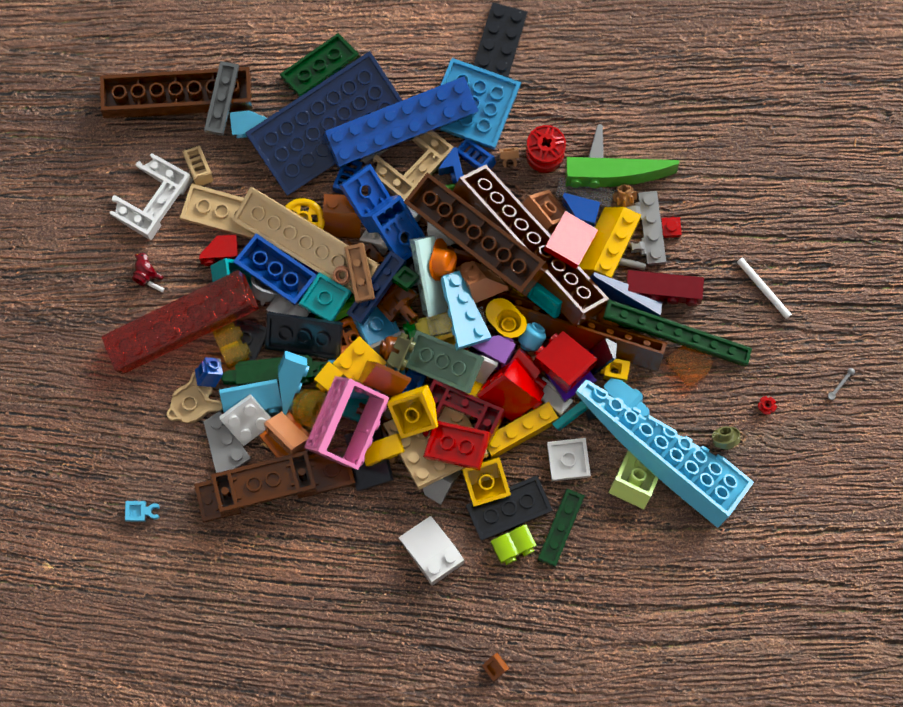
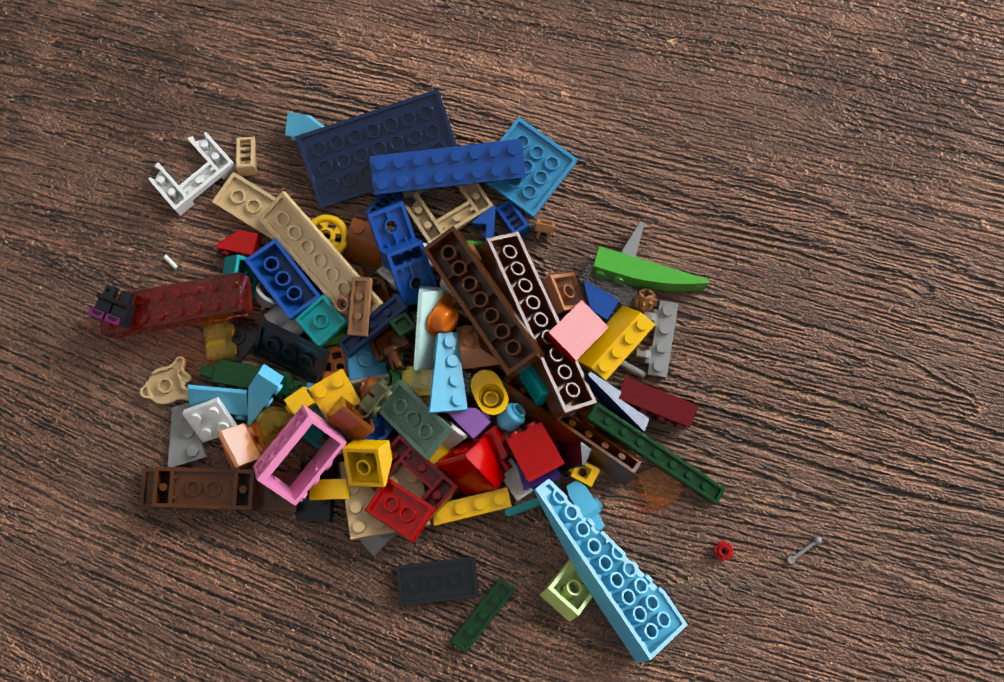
camera: 20 degrees right, 5 degrees up
(124, 340) = (113, 310): none -> black hips
(137, 511) = (82, 478): medium azure plate -> none
(144, 270) = (163, 243): dark red animal -> none
(168, 93) = (245, 79): reddish brown brick -> none
(209, 372) = (190, 361): blue window -> none
(221, 98) = (282, 96): dark grey plate -> none
(319, 65) = (390, 89): dark green tile -> none
(431, 550) = (349, 601): white slope -> none
(487, 483) = (425, 552): yellow slope -> none
(500, 39) = (571, 111): black plate -> none
(514, 544) = (430, 619): lime brick -> none
(541, 157) = (573, 237): red wheel -> none
(568, 459) = (510, 549): white plate -> none
(671, 227) = (682, 343): red plate -> none
(726, 437) = (672, 573): olive plate -> none
(764, 288) = (755, 430): white bar -> none

